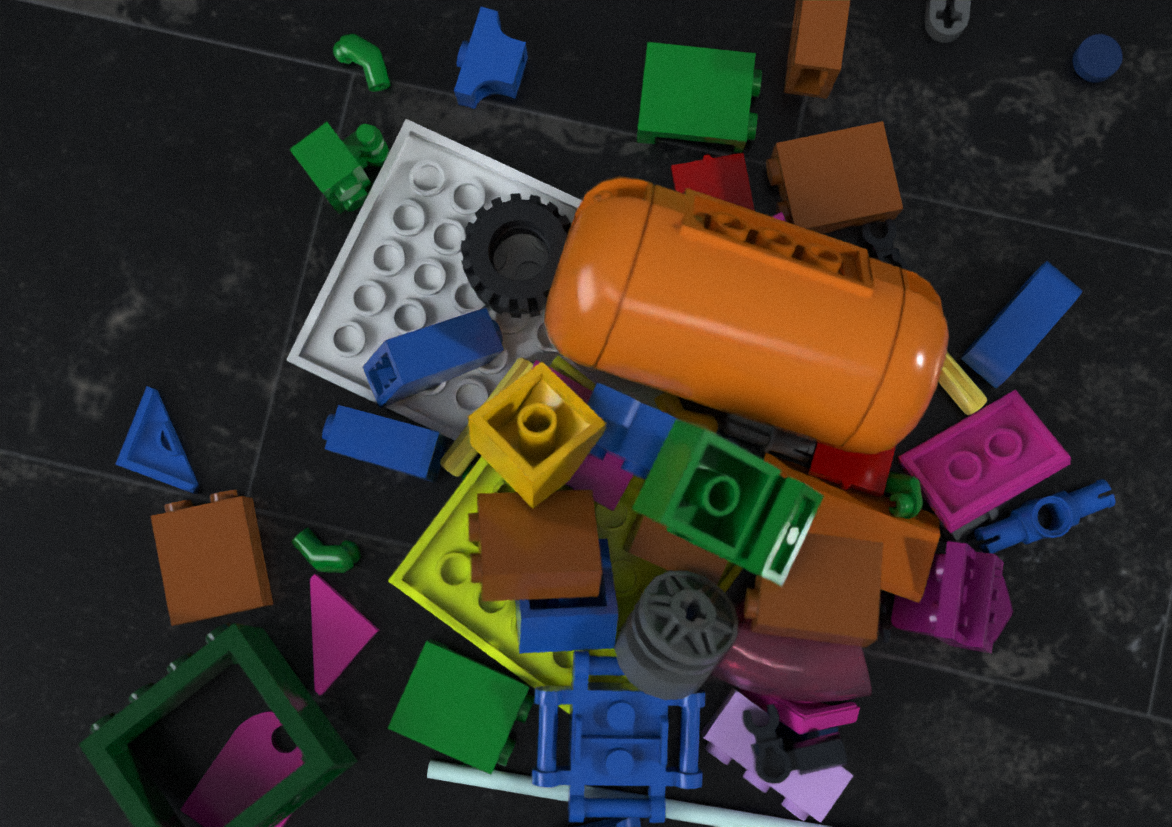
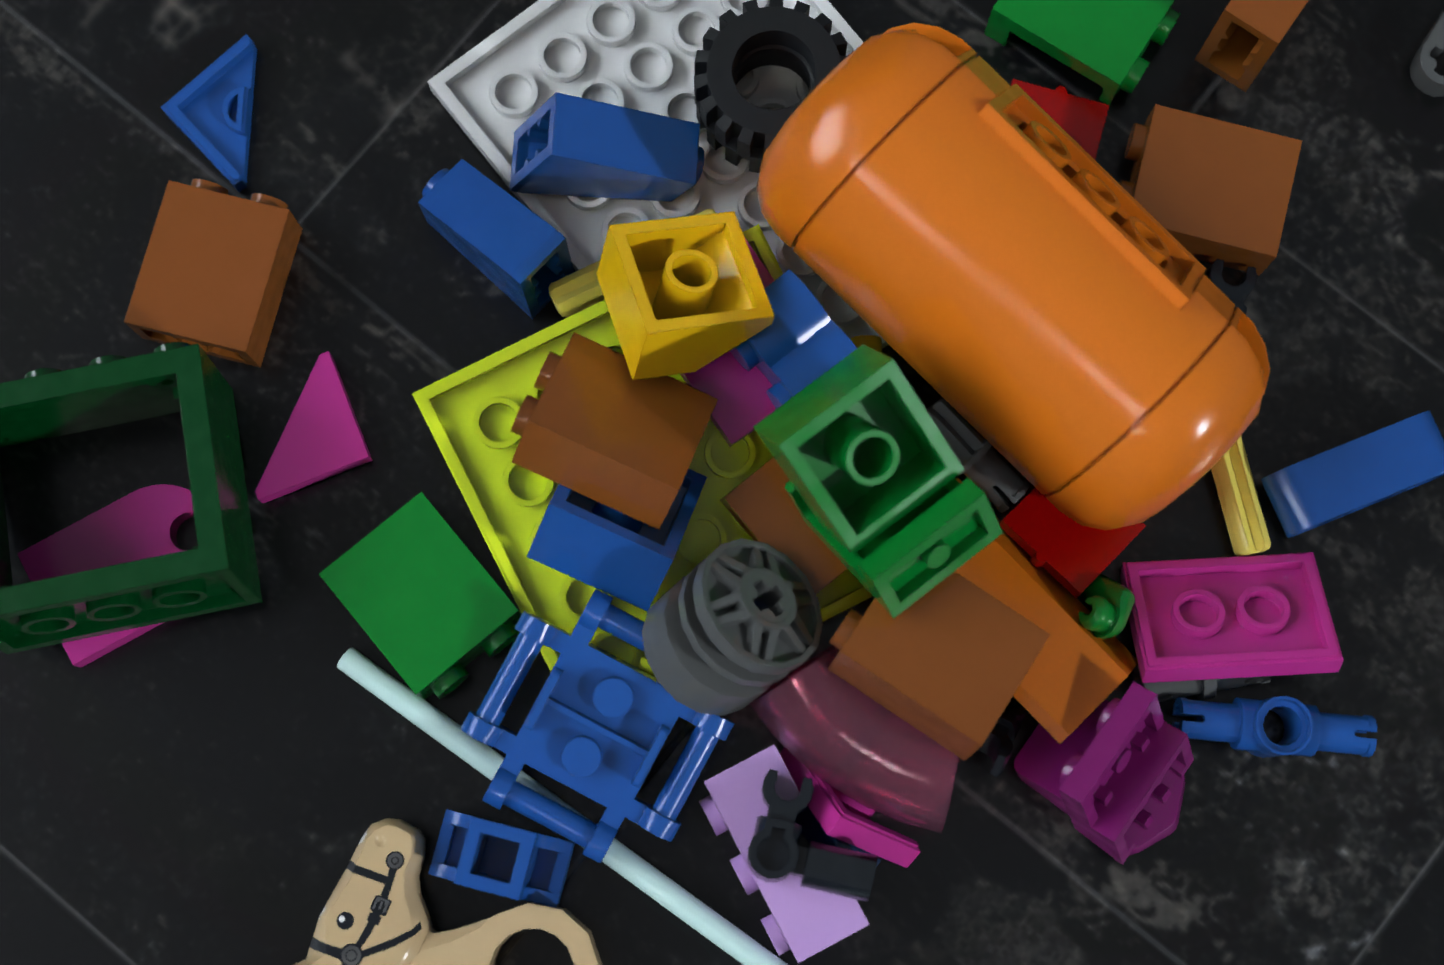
camera: 20 degrees right, 5 degrees down
(326, 557) = (354, 340): green arm -> none

